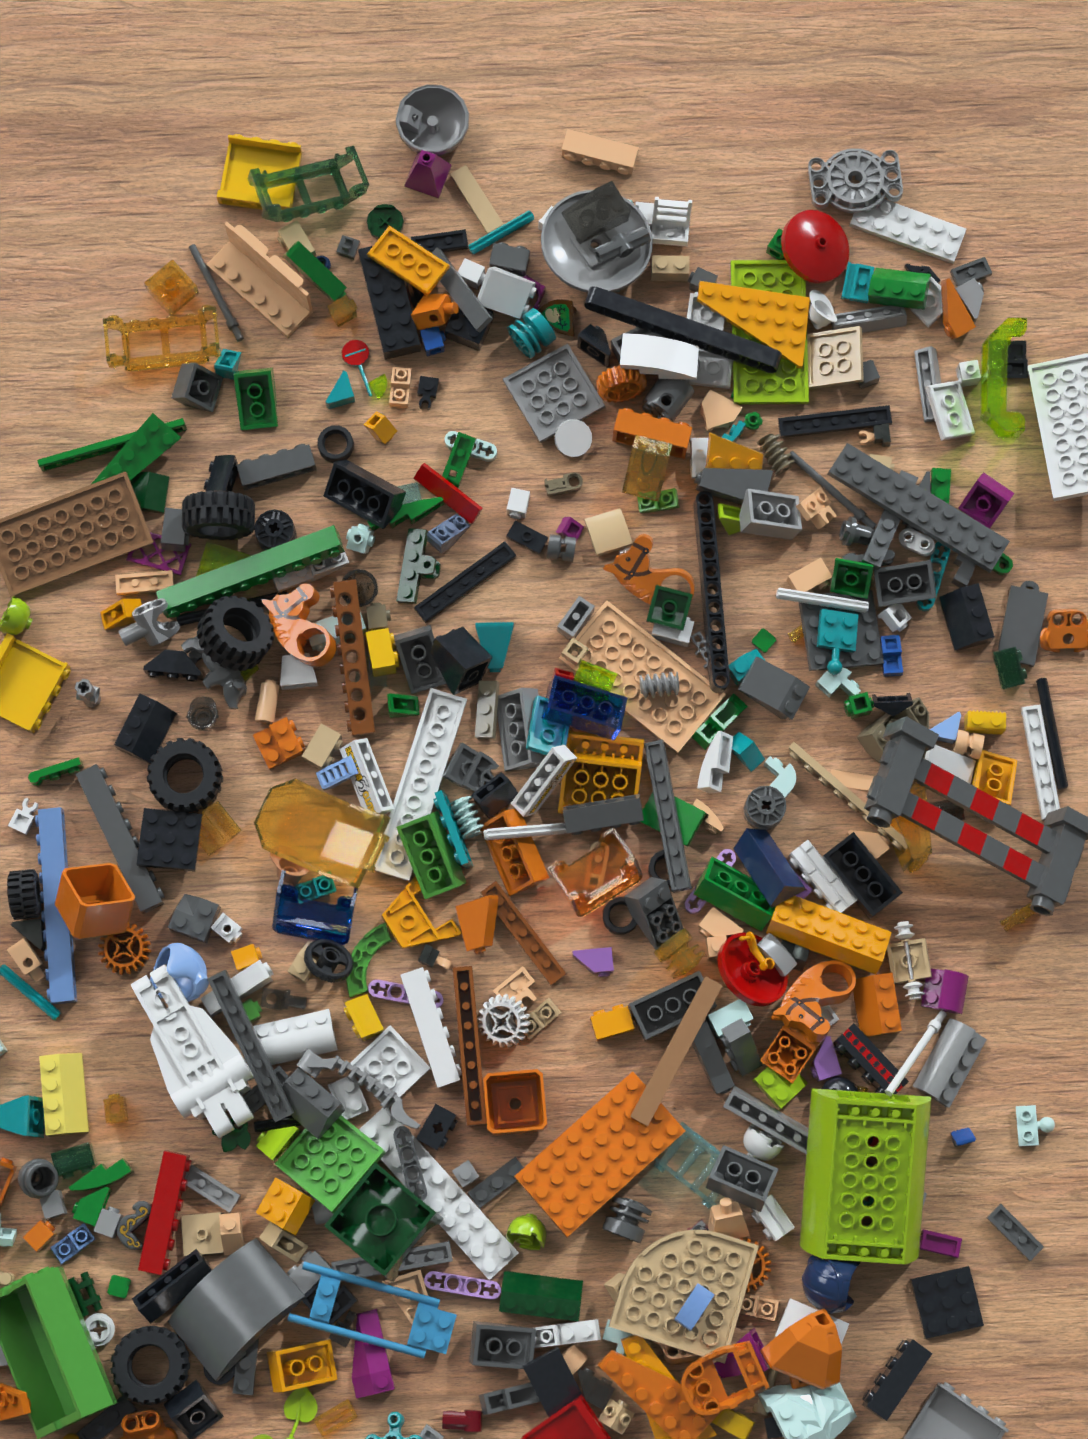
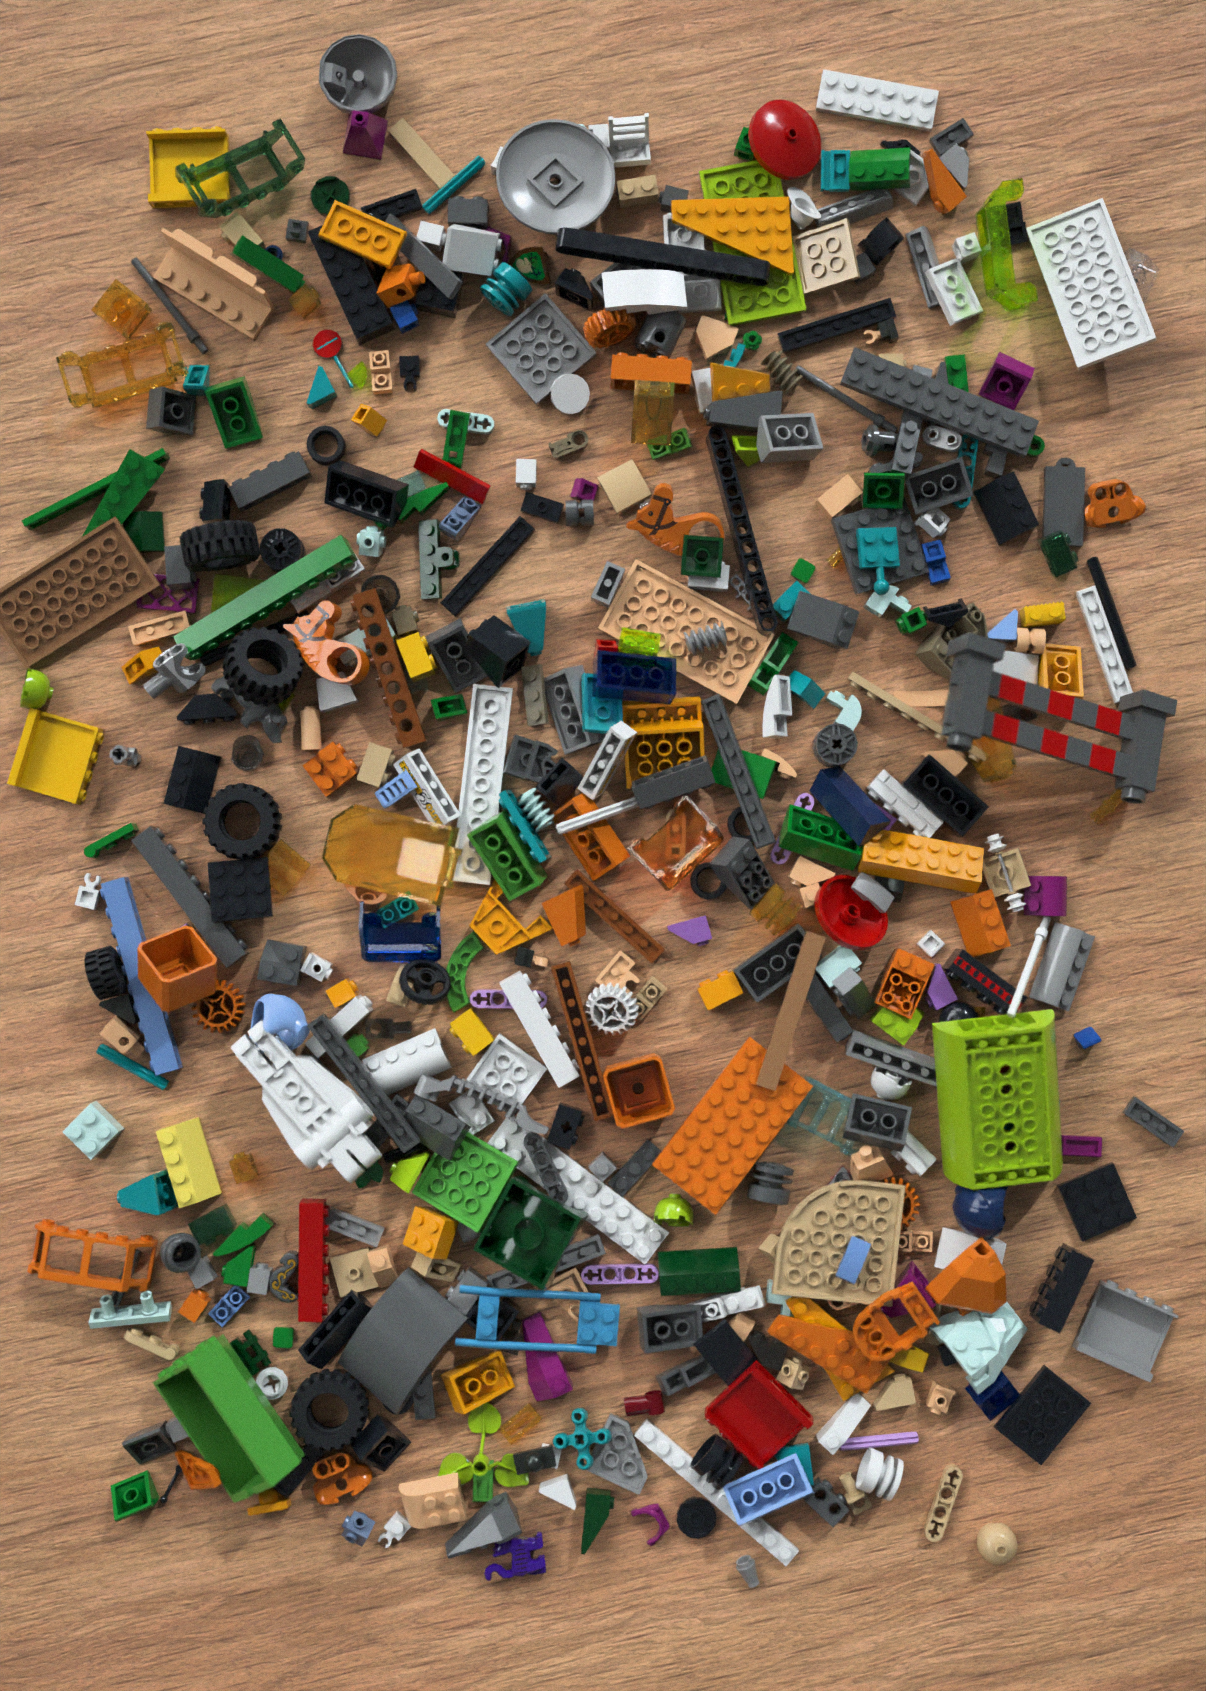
camera: 10 degrees left, 10 degrees up
(574, 645) = (613, 613): tan plate -> none
(597, 212) = (550, 145): clear smoke slope -> none
(599, 152) = (540, 77): light nougat brick -> none
(622, 245) = (583, 176): dark grey piece -> none
(764, 963) = (864, 904): light orange piece -> none
(806, 996) = (906, 936): orange animal -> none
(816, 509) = (833, 423): light nougat plate -> none
(822, 600) = (856, 519): white axle -> none
(868, 170) = (826, 45): light grey piece -> none
(889, 352) = (881, 241): none -> black brick
(1028, 1125) = (1150, 1014): light aqua plate -> none

